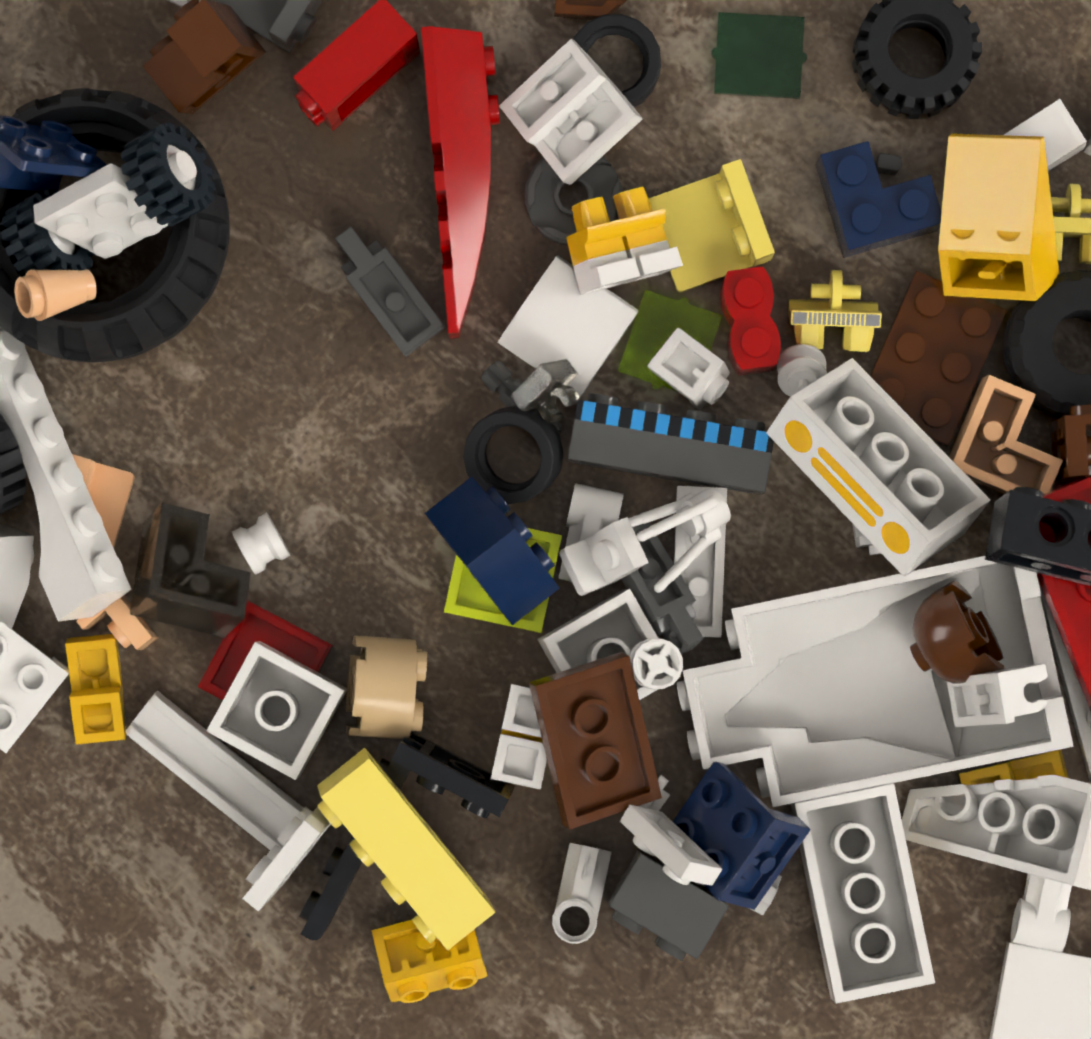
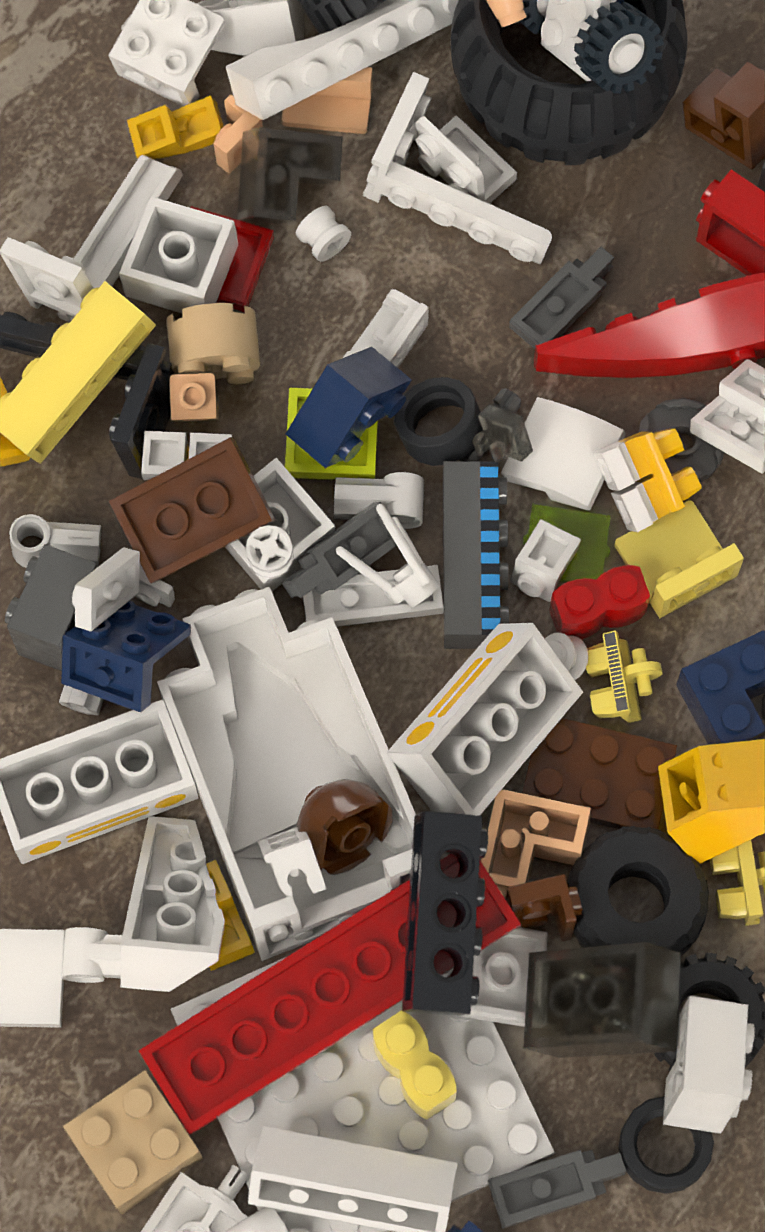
camera: 85 degrees right, 15 degrees down
(181, 444) = (439, 201): none -> white bracket
(202, 368) = (462, 159): none -> white bracket
(396, 496) = (394, 328): none -> white hinge
(448, 719) = (193, 397): none -> light nougat bracket
(603, 557) = (356, 495): white bracket -> none

